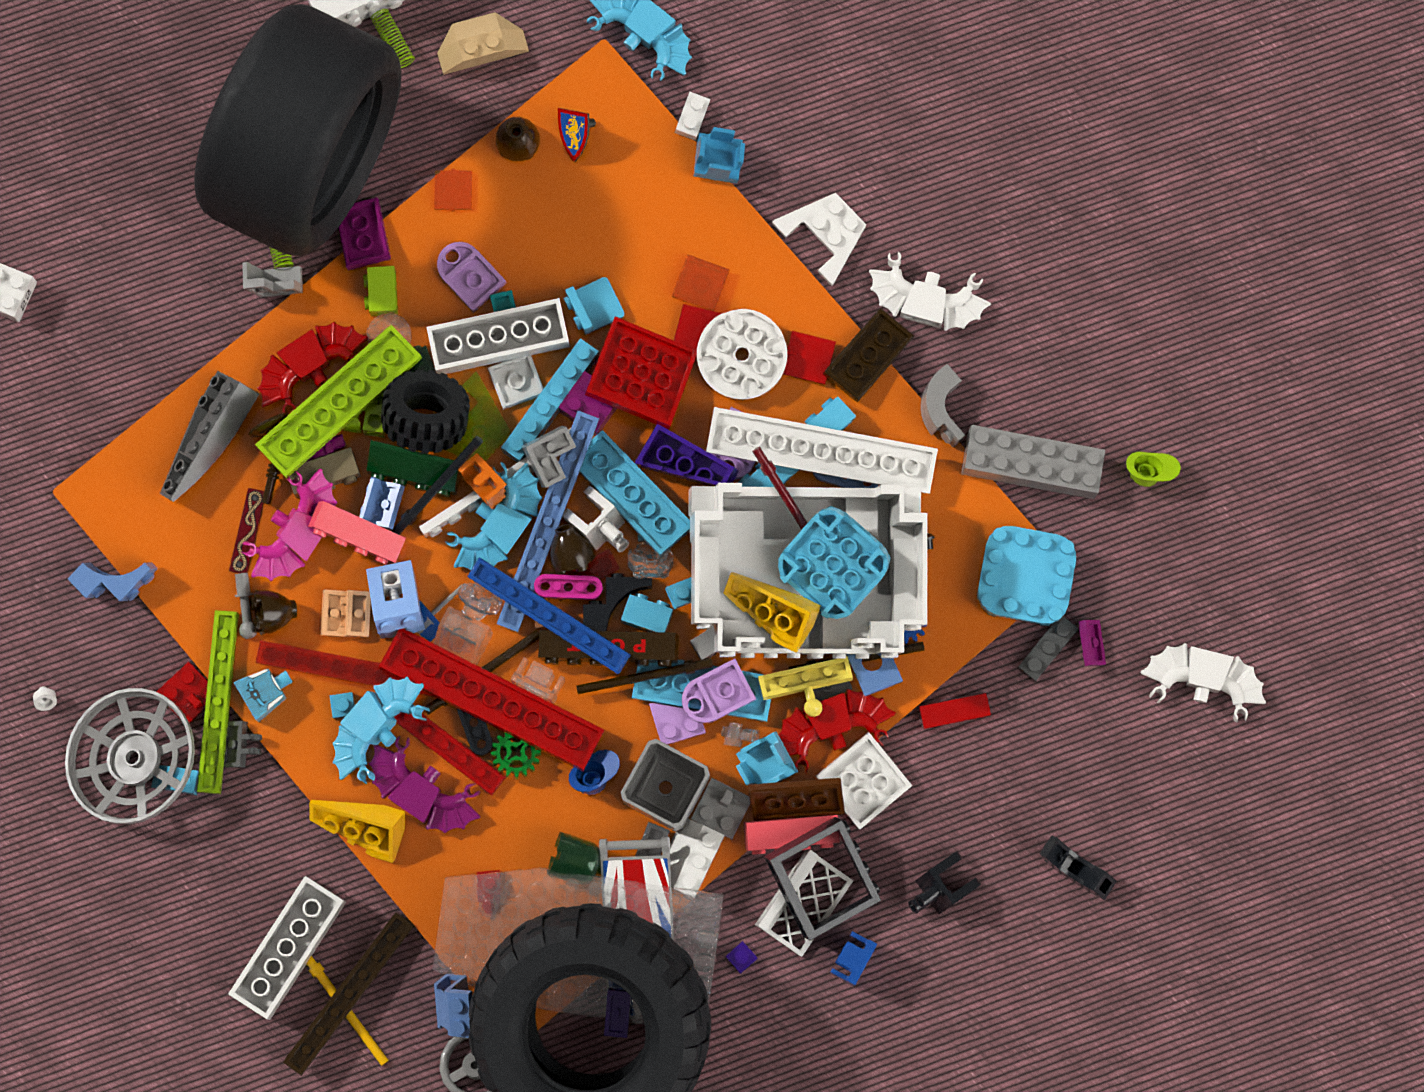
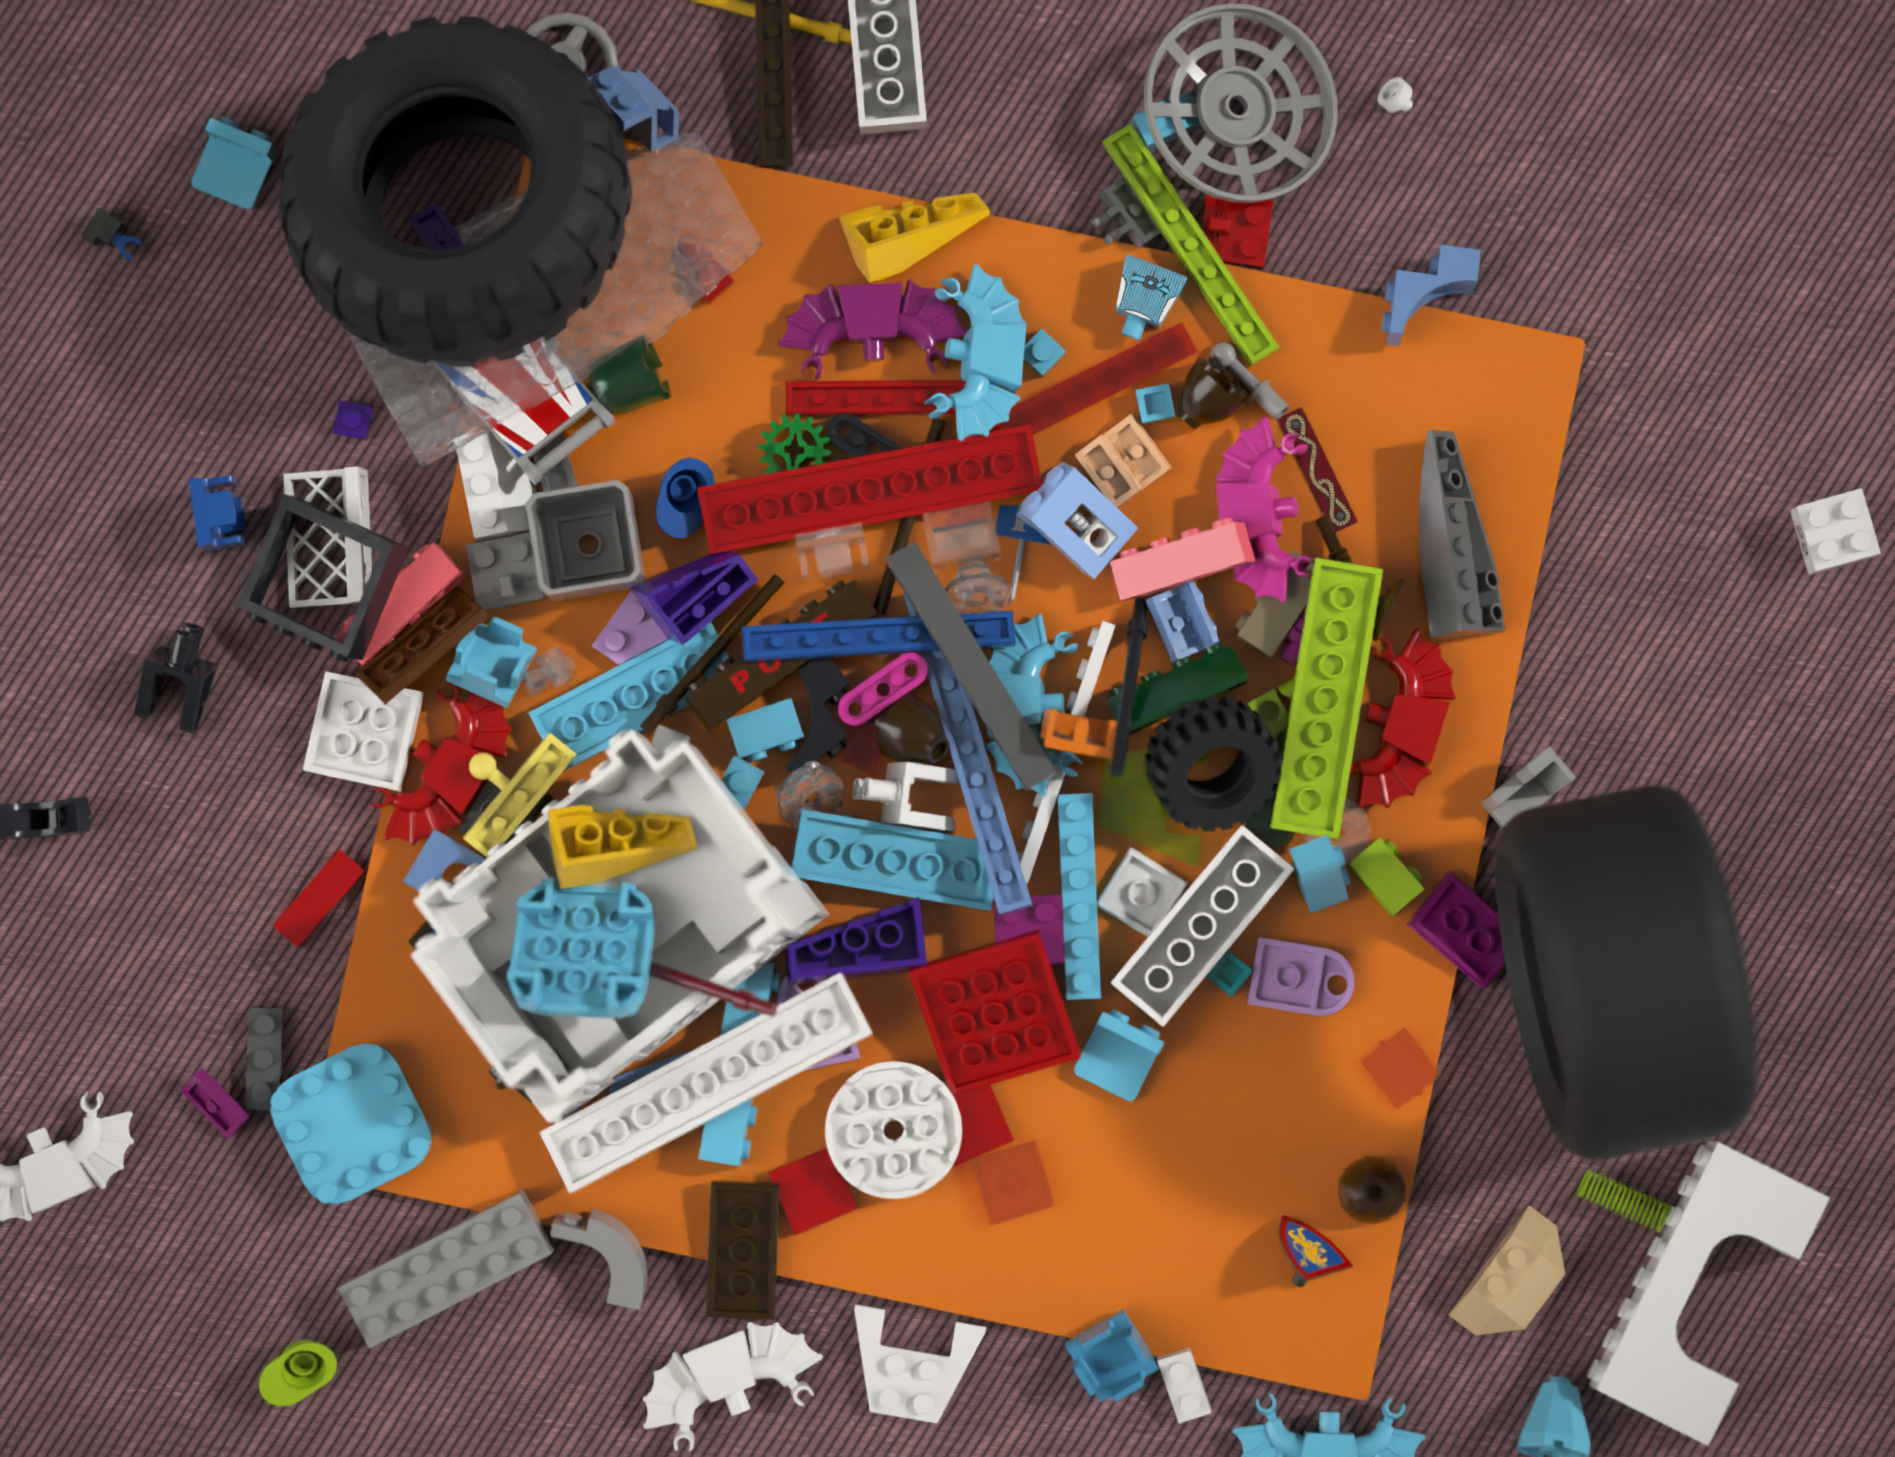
camera: 150 degrees right, 5 degrees up
(304, 630) = (1155, 403): none -> medium azure plate
(414, 315) = (1320, 873): none -> medium azure brick
(512, 561) = (970, 666): none -> dark grey tile
(543, 453) = (1033, 823): light grey panel -> none
(628, 714) = (694, 593): none -> dark purple wedge
(719, 692) = (608, 699): lavender tile -> none

